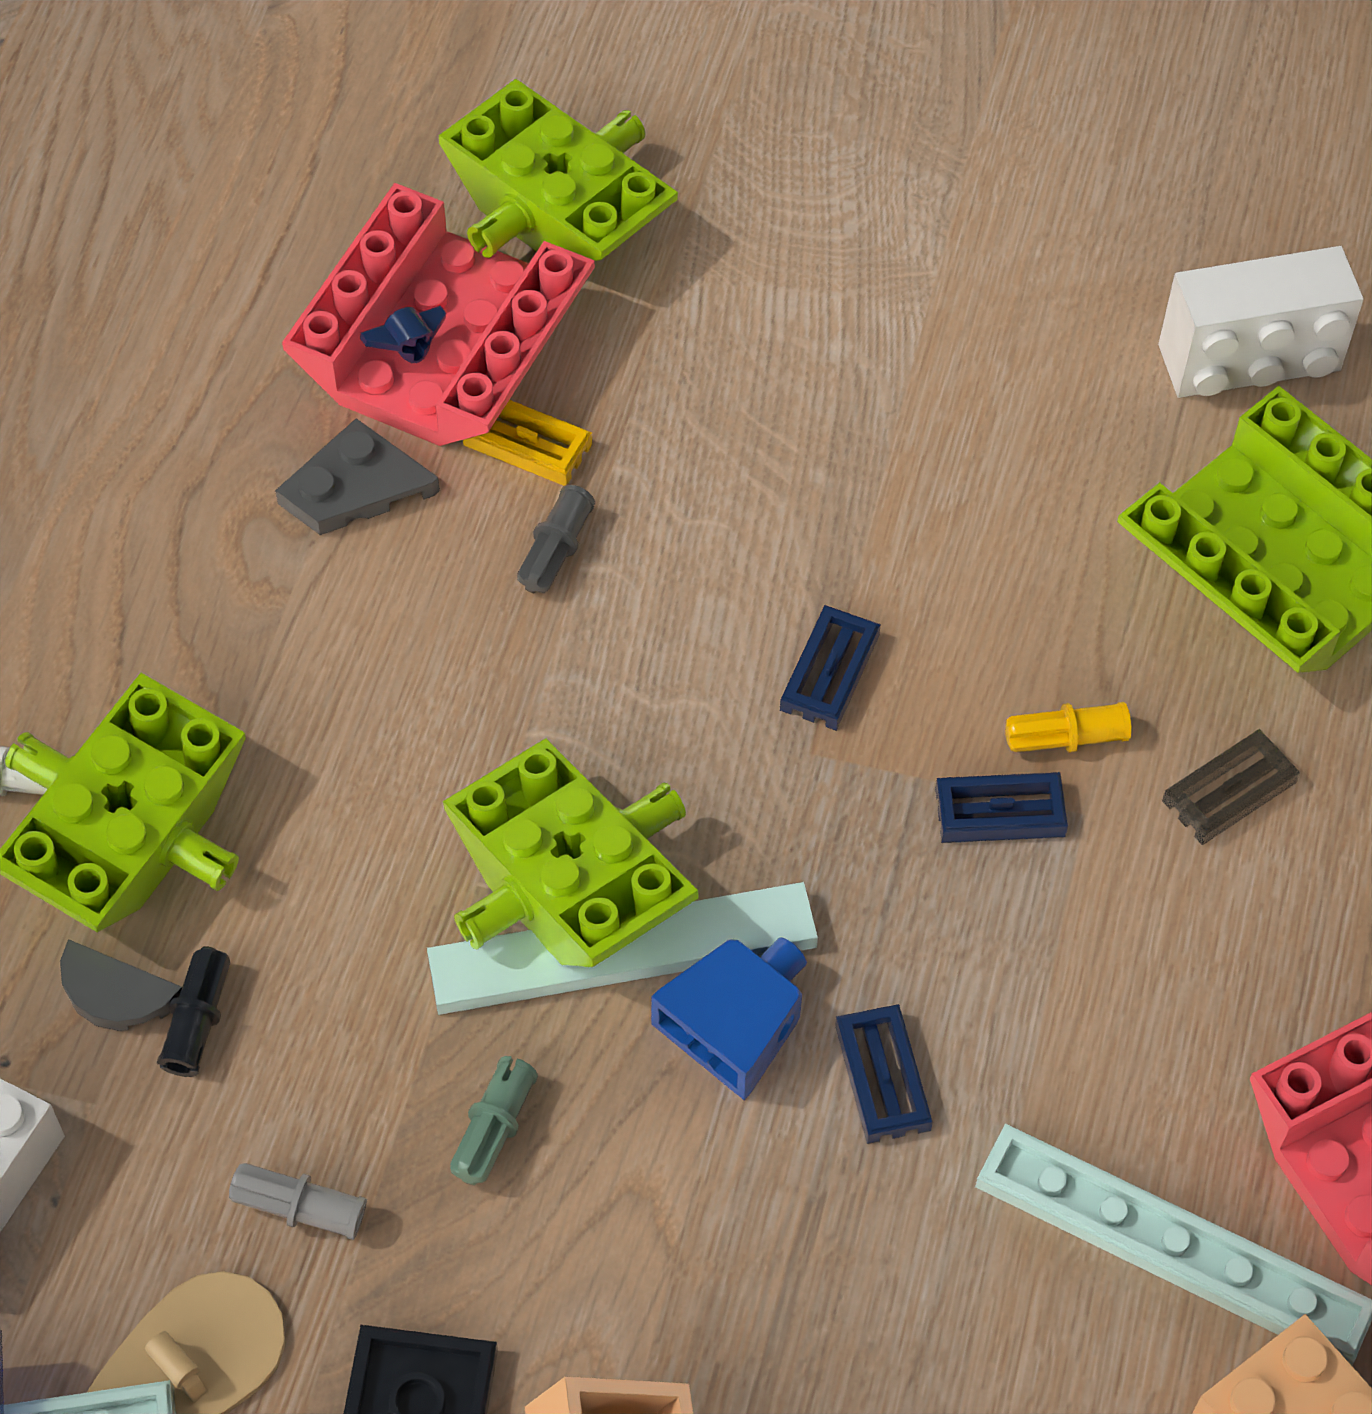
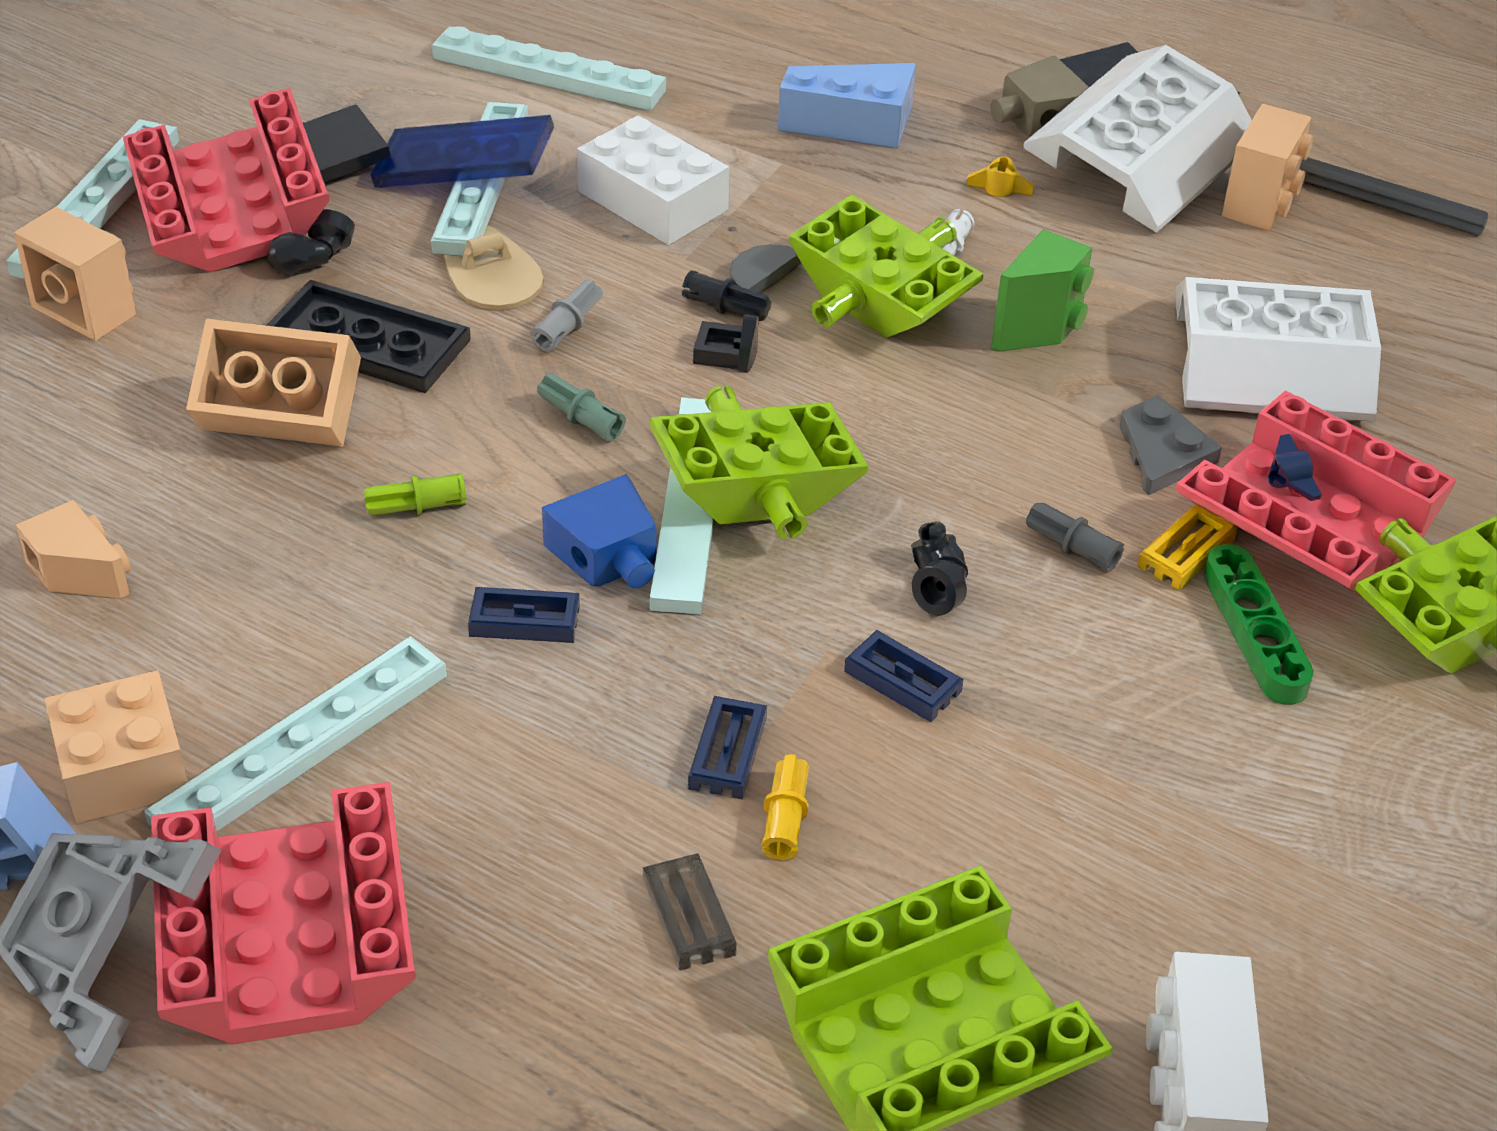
camera: 105 degrees right, 15 degrees down
(135, 615) = (1042, 293): none -> bright green slope
(144, 369) = (1272, 338): none -> white slope
(297, 981) = (727, 344): none -> black tile
(627, 357) = (1267, 620): none -> green beam
(643, 657) = (942, 570): none -> black arm
(729, 1266) = (416, 494): none -> lime axle

